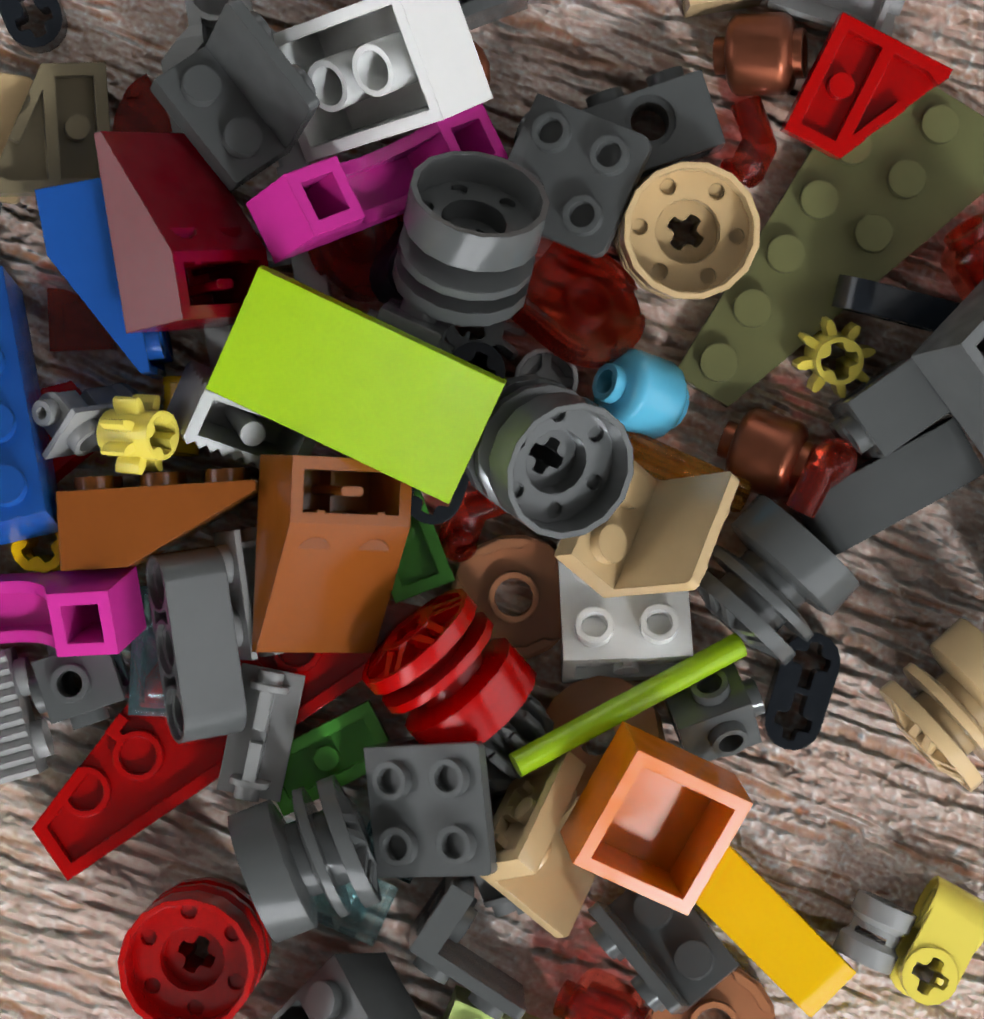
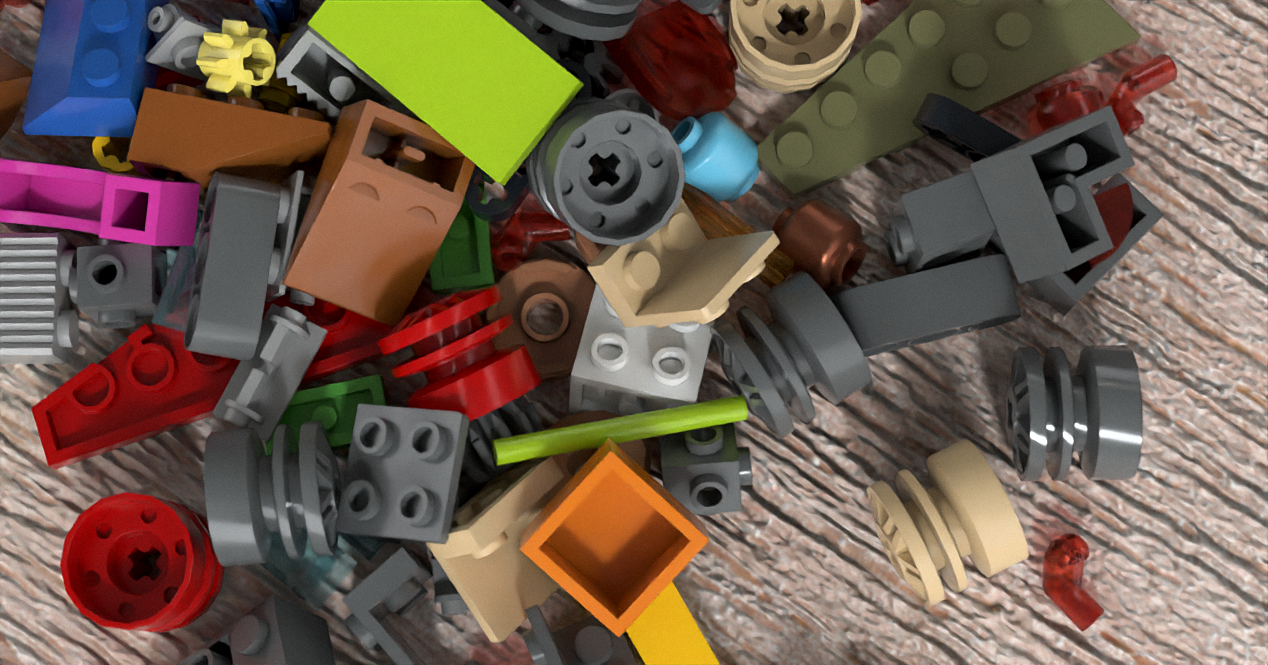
camera: 20 degrees right, 10 degrees down
(815, 694) = (806, 485): black beam -> none
(826, 467) = (864, 266): clear red arm -> none
(847, 367) = (915, 159): light yellow gear -> none

